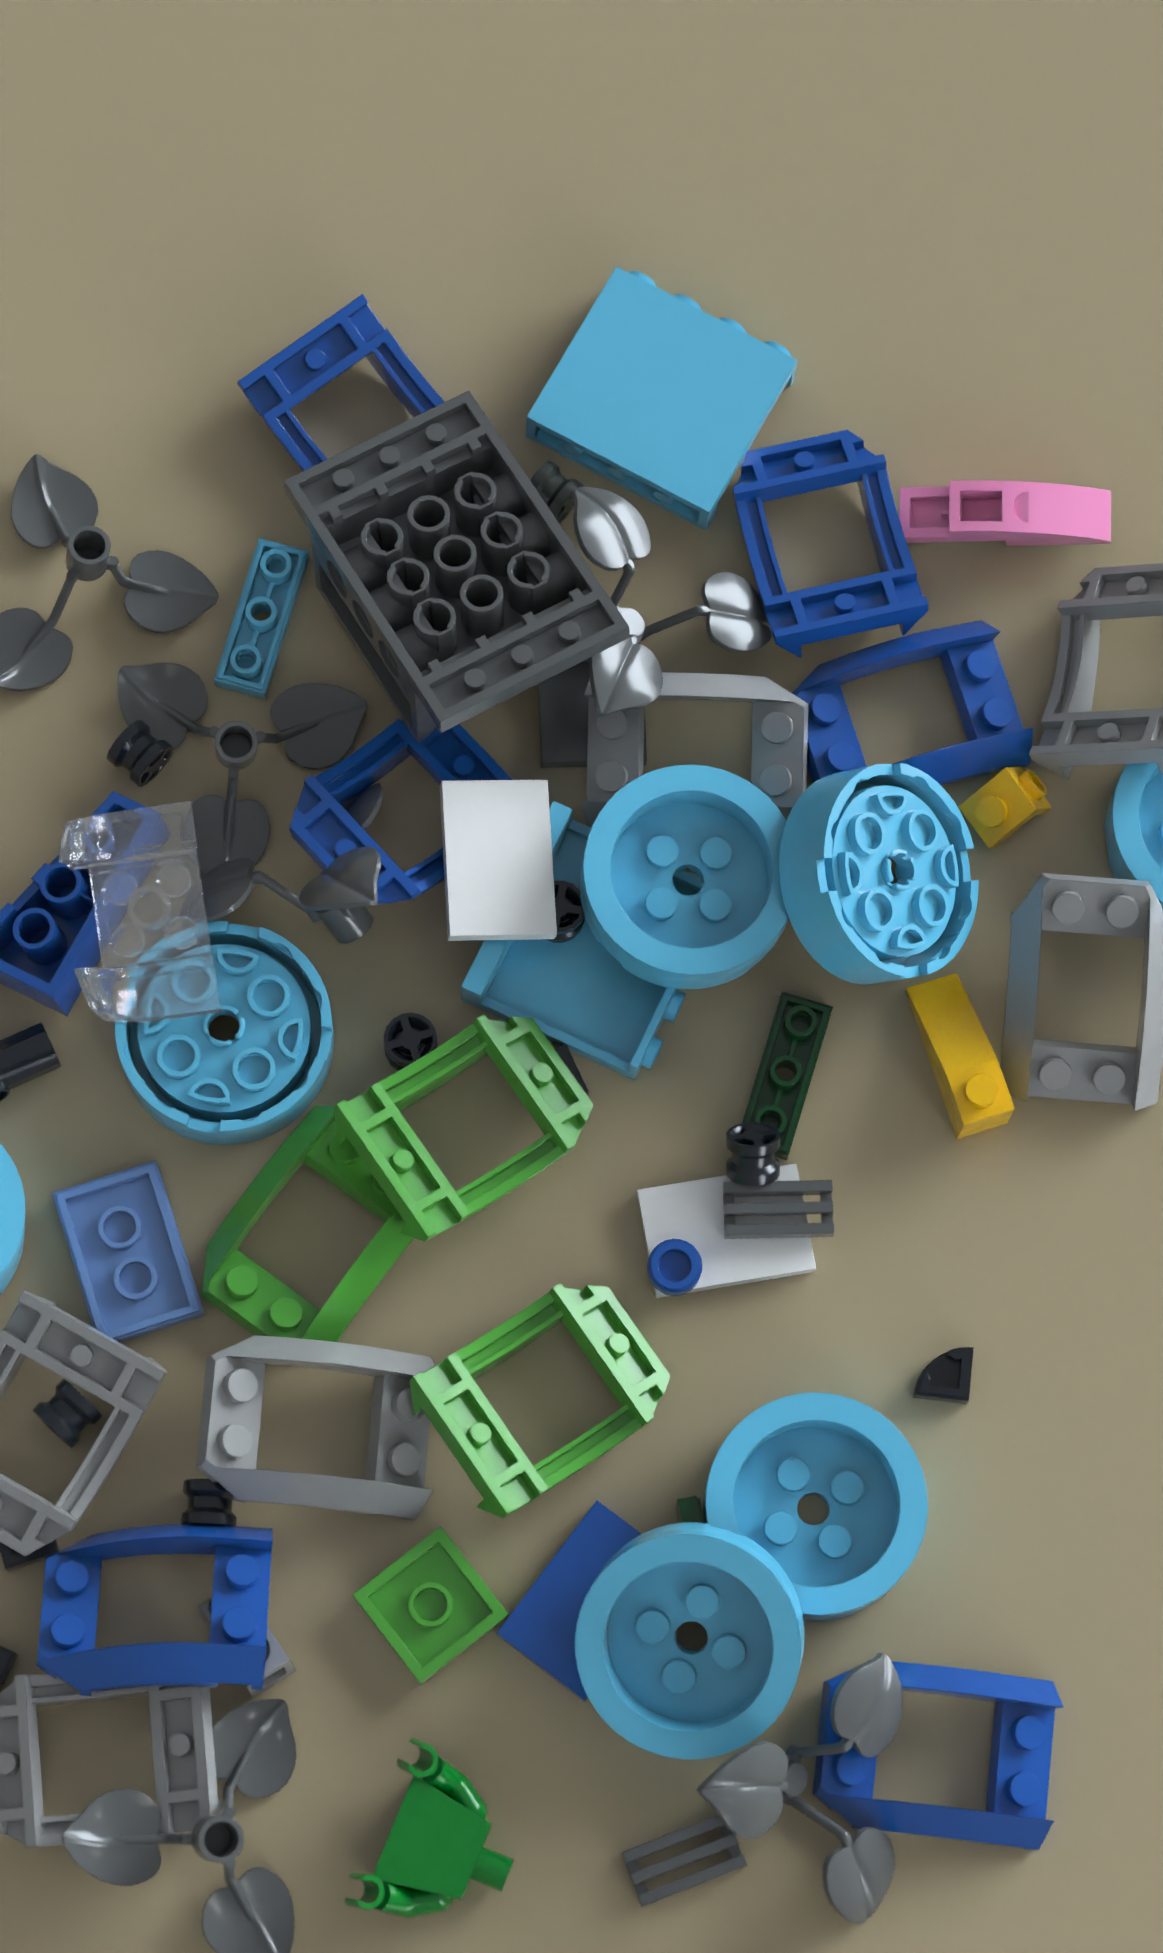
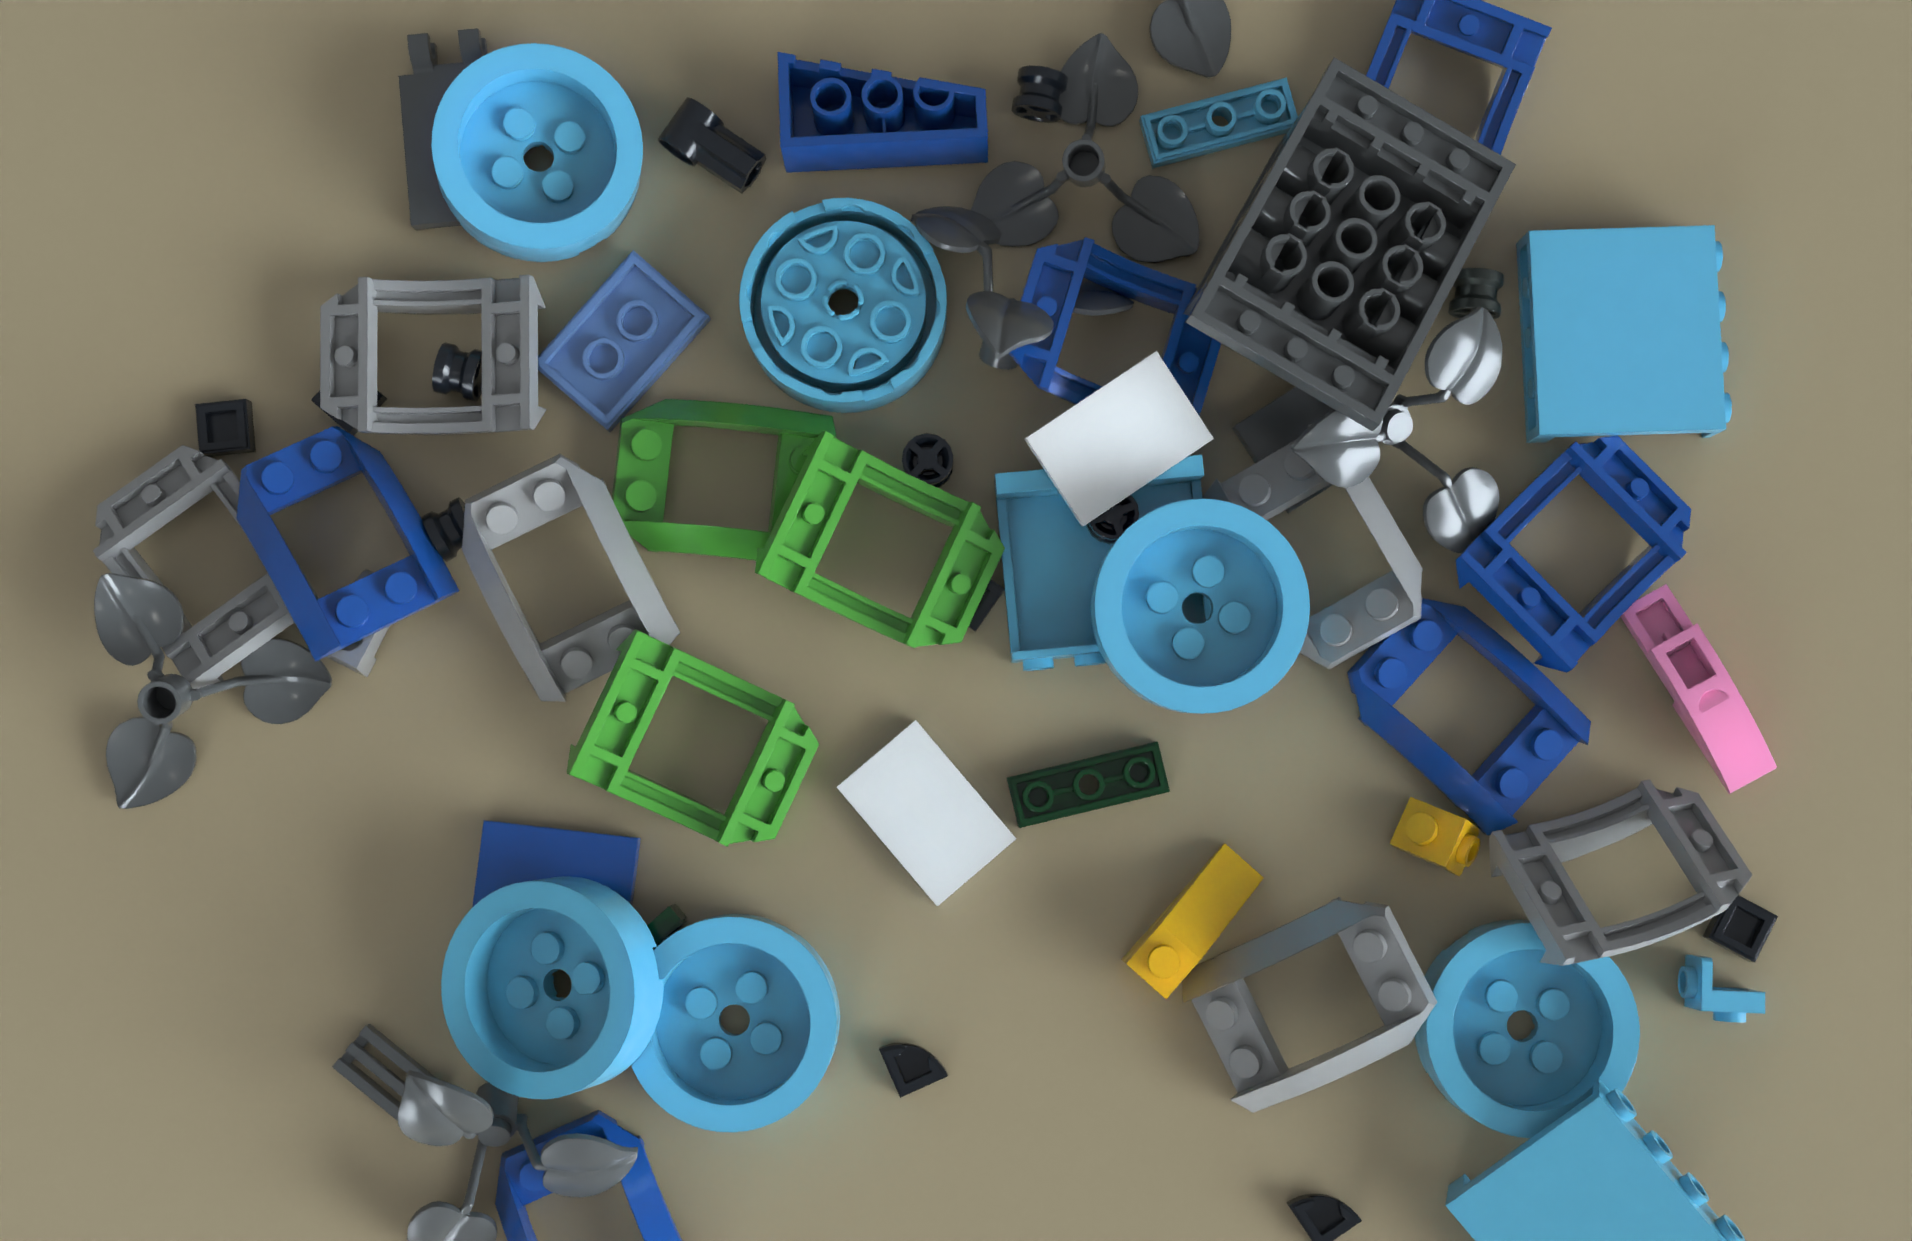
camera: 65 degrees right, 10 degrees up
(145, 914) = (892, 174): clear piece -> none
(430, 1605) = (474, 754): bright green plate -> none
(433, 1844) = (279, 870): green torso -> none
(674, 1267) = (866, 789): blue tile -> none
(753, 1154) = (998, 799): black wheel -> none
(778, 1188) = (989, 885): dark grey tile -> none
(840, 874) = (1271, 737): medium azure brick -> none

